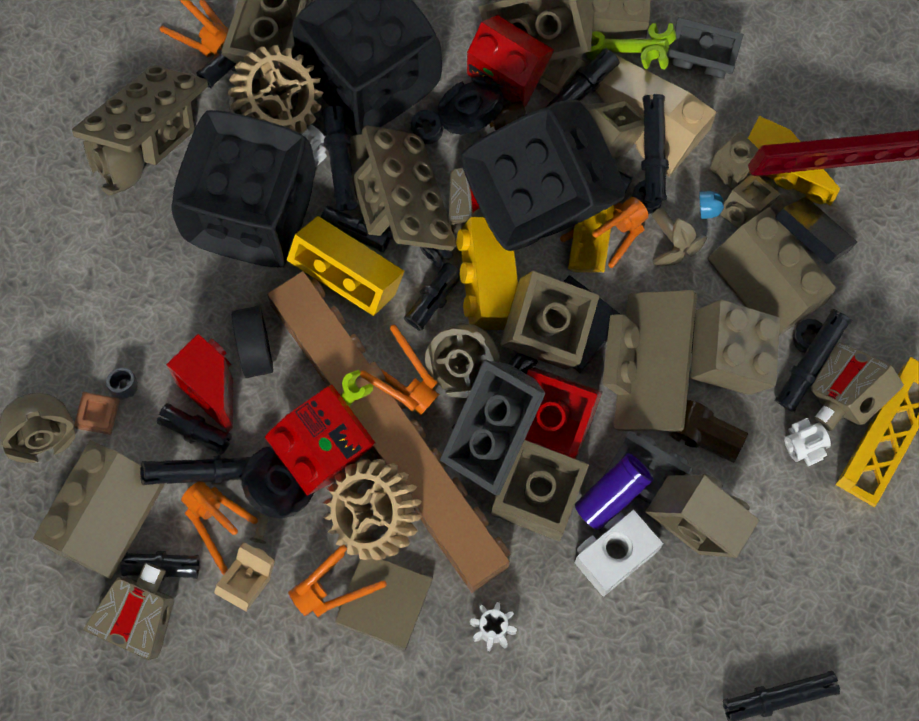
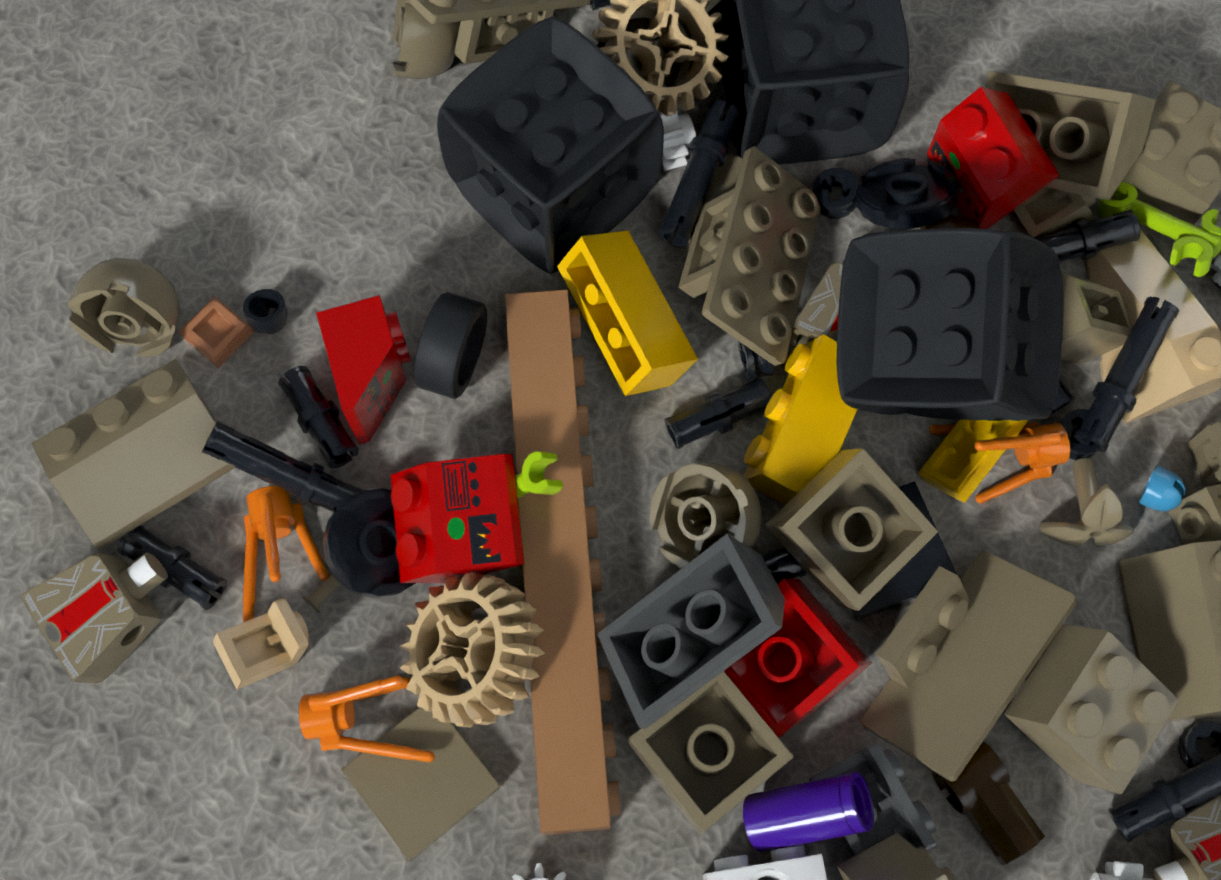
camera: 30 degrees right, 0 degrees up
(337, 219) = (653, 250): black pin -> none
(417, 394) = (617, 529): orange plant -> none

